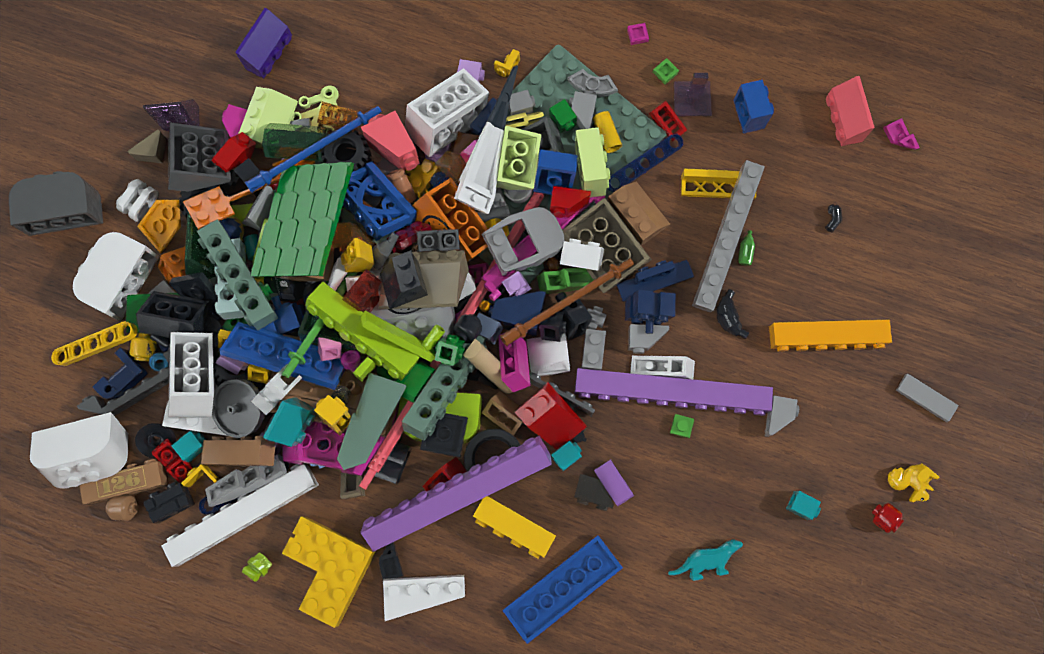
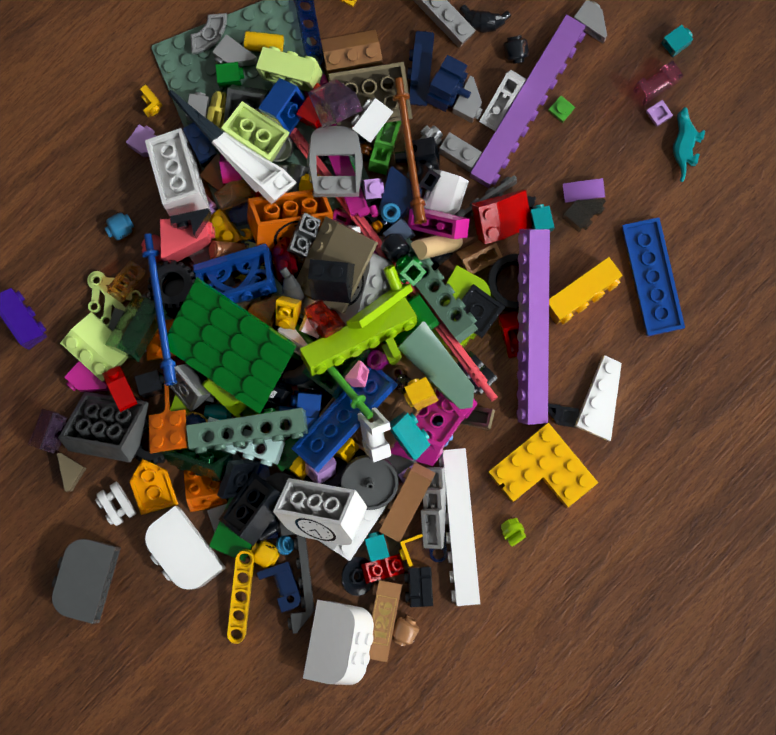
camera: 65 degrees left, 5 degrees up
(385, 89) = (119, 226): none -> dark azure head
(404, 138) = (197, 219): none -> black slope
(499, 304) = (388, 207): none -> dark azure plate
(578, 212) = (334, 102): none -> slope
(716, 357) = (516, 49): none -> black head
(724, 520) = (659, 113): none -> lavender plate
(759, 510) = (664, 79): none -> clear pink piece

